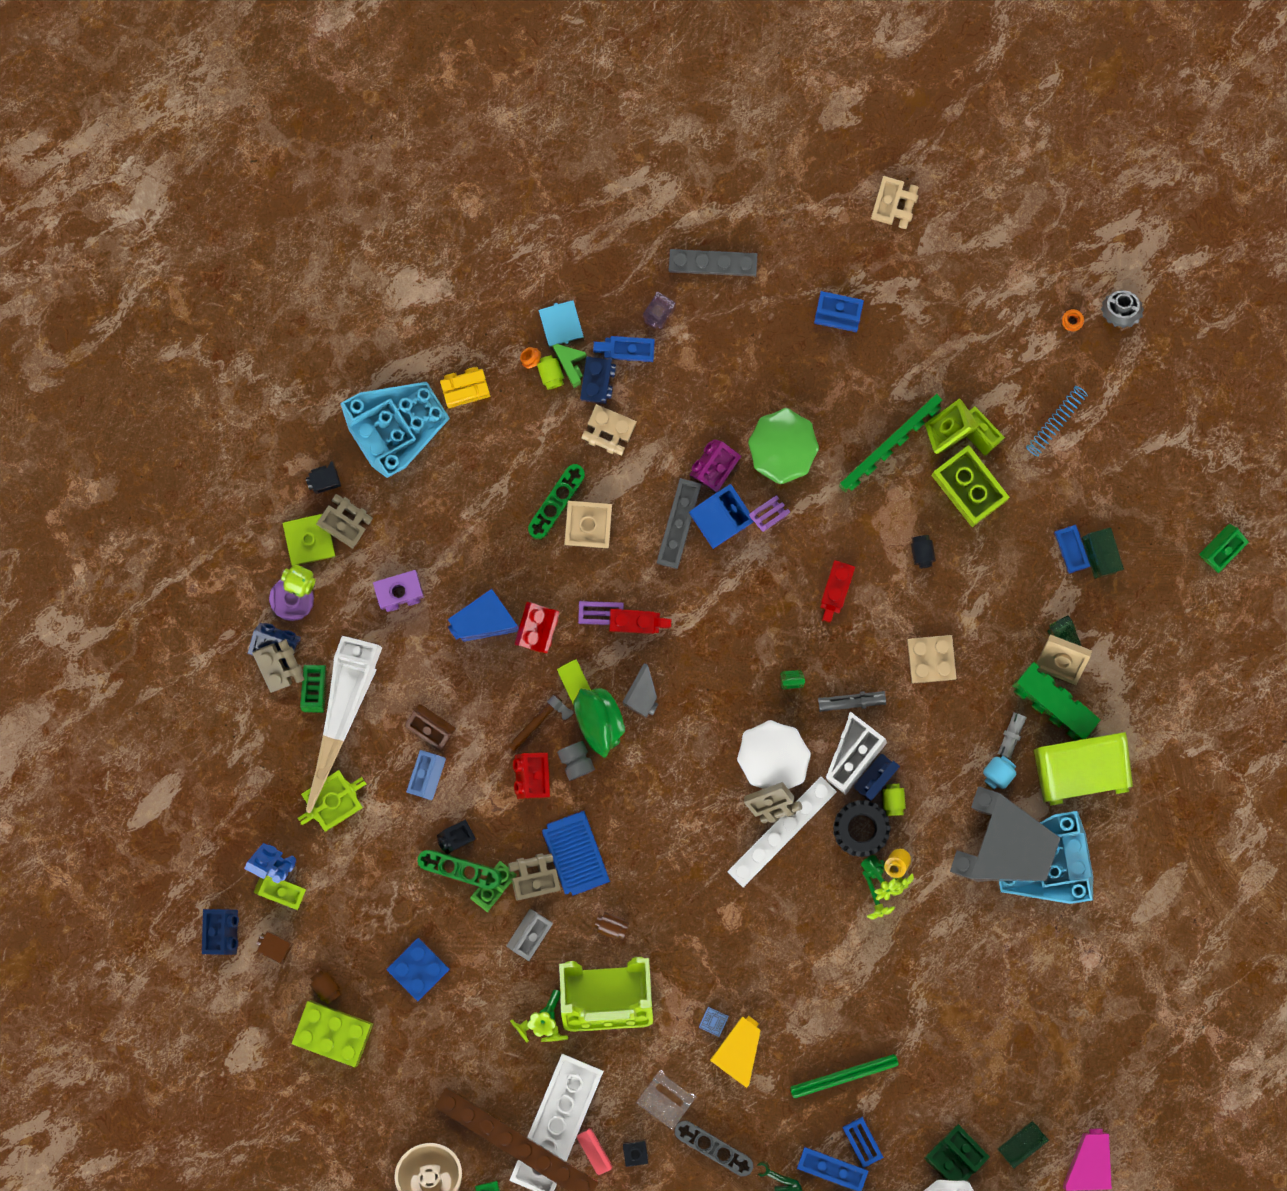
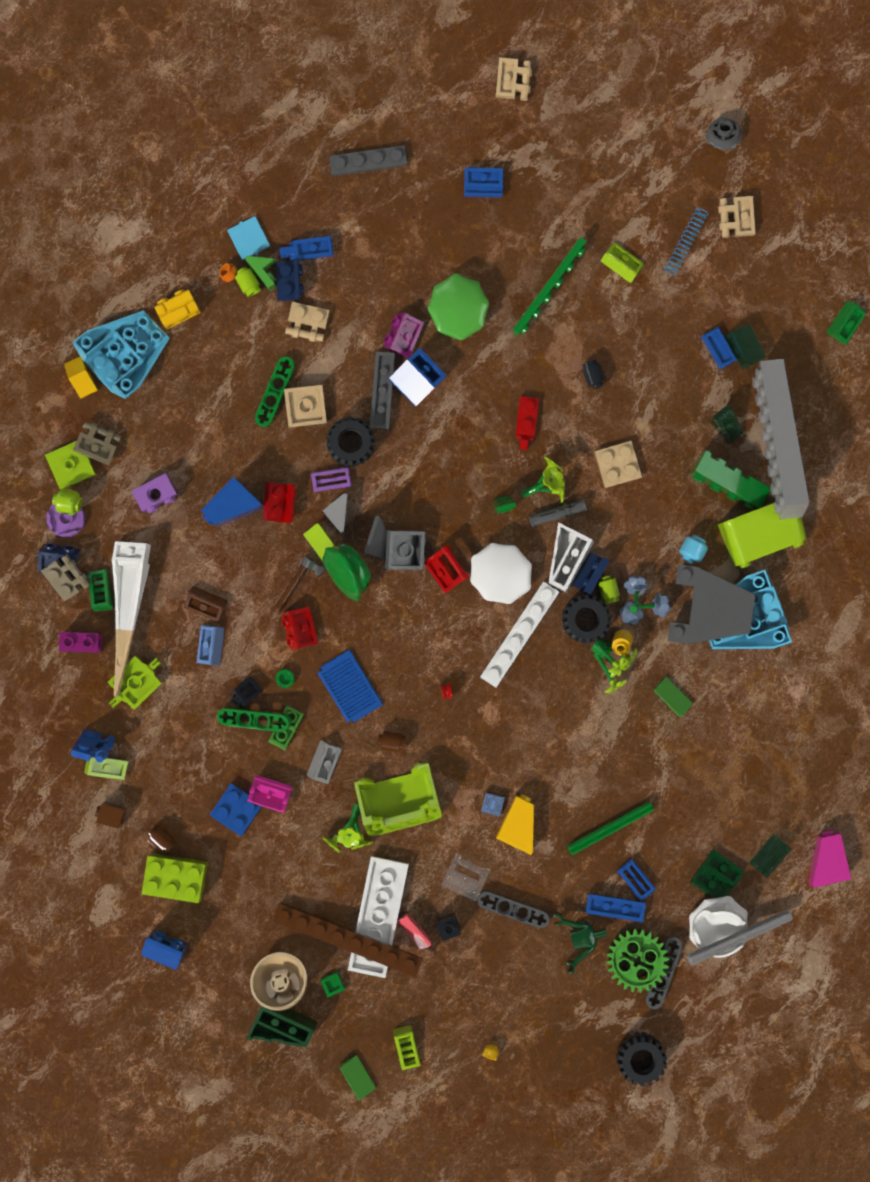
camera: 25 degrees left, 5 degrees up
(220, 931) = (62, 811): dark blue bracket -> none
(280, 742) = (80, 642): none -> magenta hinge
(303, 1114) = (164, 949): none -> blue slope
(323, 479) = (72, 410): black window -> none
(340, 443) = (80, 377): none -> yellow slope
(460, 958) = (269, 793): none -> dark pink hinge
(503, 829) = (285, 678): none -> green tile
(537, 883) = (320, 719): dark tan plate -> none
(576, 760) = (334, 608): dark grey wheel -> none
(601, 651) = (337, 512): none -> light grey slope
(625, 556) = (342, 427): none -> black tyre
(636, 621) = (363, 481): red hinge -> none
(659, 311) = (330, 211): window -> none
(670, 709) = (405, 550): none -> dark grey plate
(685, 880) = (446, 690): none -> red bush
(707, 742) = (441, 570): none -> red plate
(769, 800) = (507, 612): dark tan plate -> none
(777, 507) = (463, 360): medium lavender tile -> none
(851, 660) = (550, 478): none -> lime plant
(916, 831) = (631, 612): none -> sand blue plant
(944, 938) = (673, 697): none -> bright green slope
(950, 426) = (597, 263): lime slope -> none
(970, 486) = (623, 310): lime brick -> none
(1012, 735) = (697, 515): light grey pin -> none
(1063, 659) = (730, 443): tan plate -> none
(1075, 314) = (683, 146): orange plate -> none
(1121, 666) = (781, 439): none -> light grey brick
(1127, 404) = (743, 217): none -> tan plate

